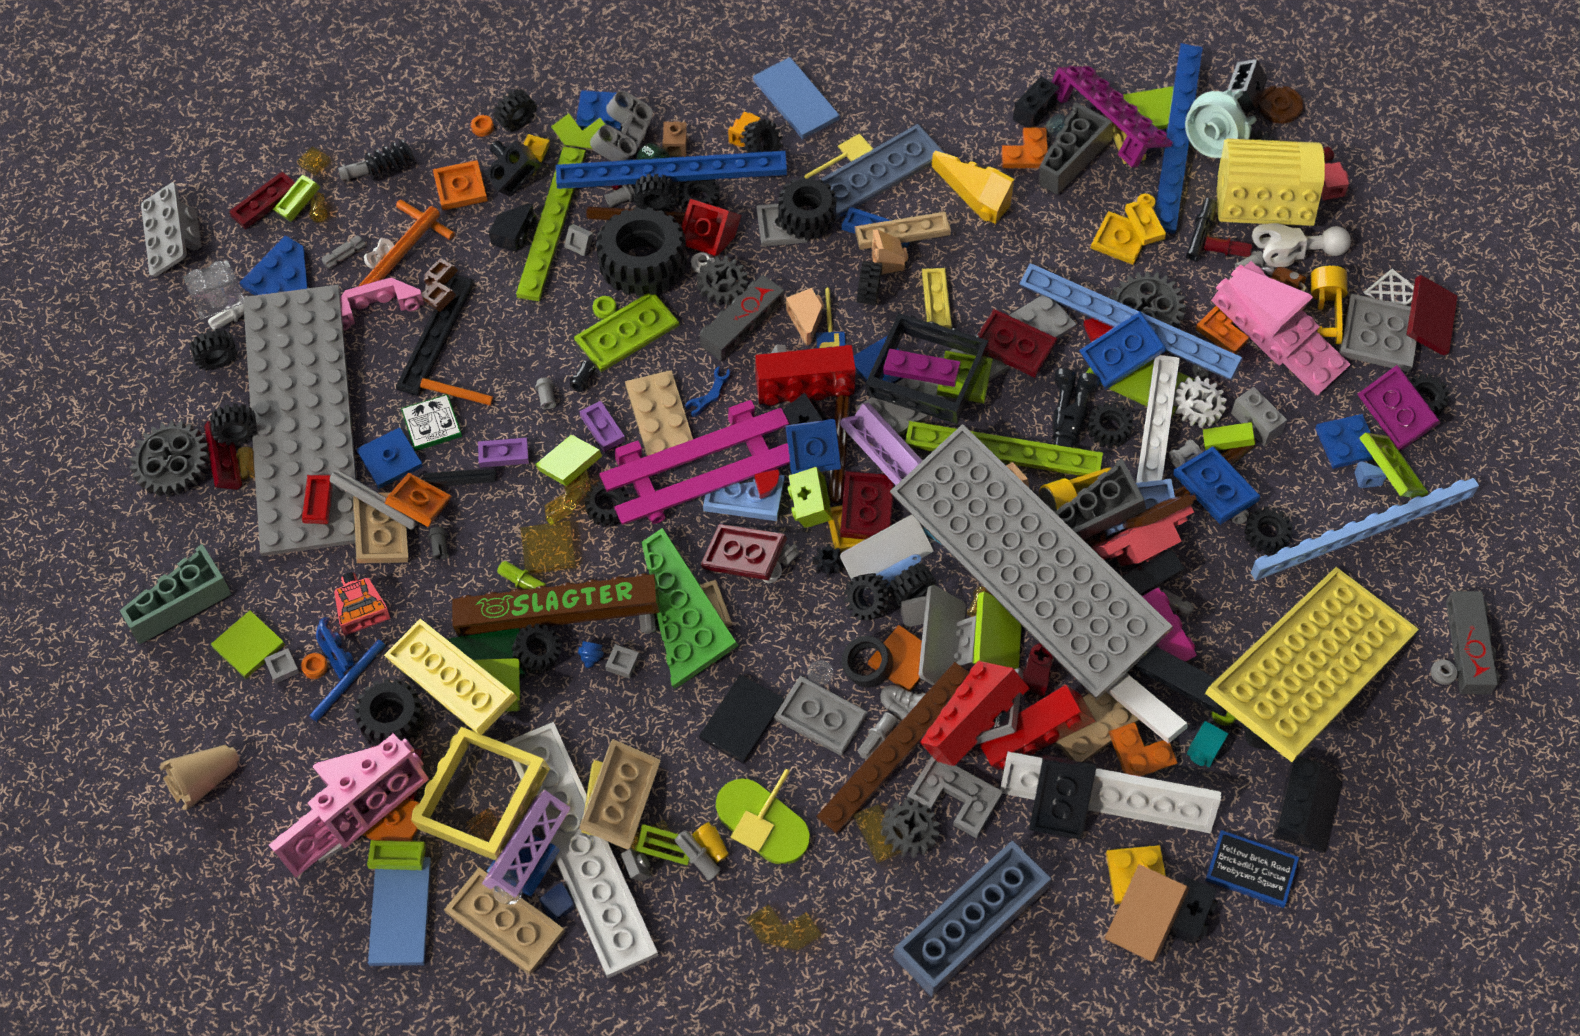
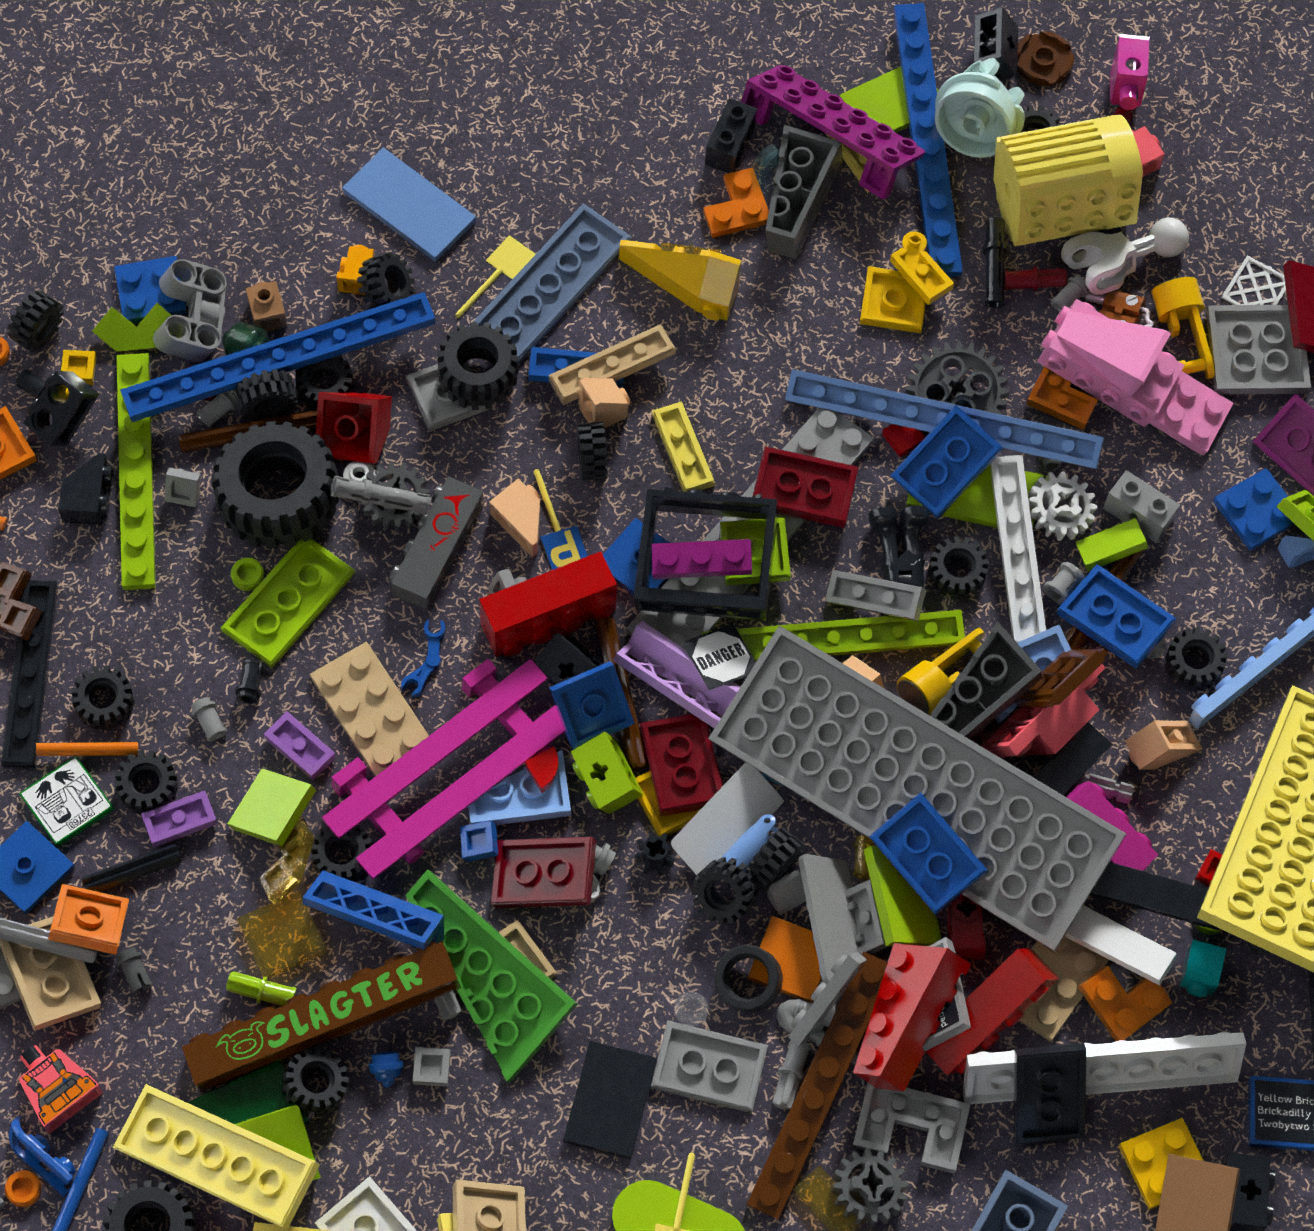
camera: 20 degrees left, 5 degrees up
(478, 349) = (97, 680): none -> black tyre
(486, 411) = (141, 764): none -> black tyre
(616, 543) = (375, 910): none -> blue fence
(705, 520) = (479, 840): none -> blue plate
(710, 273) = (366, 493): none -> light grey pin
(915, 438) = (720, 656): none -> sticker
(917, 685) = (826, 997): none -> light grey plate
(1023, 606) = (928, 853): none -> blue tile
(1042, 427) = (875, 595): none -> light grey plate
(1224, 581) = (1162, 744): none -> light nougat slope
(1337, 129) = (1125, 84): none -> dark pink torso

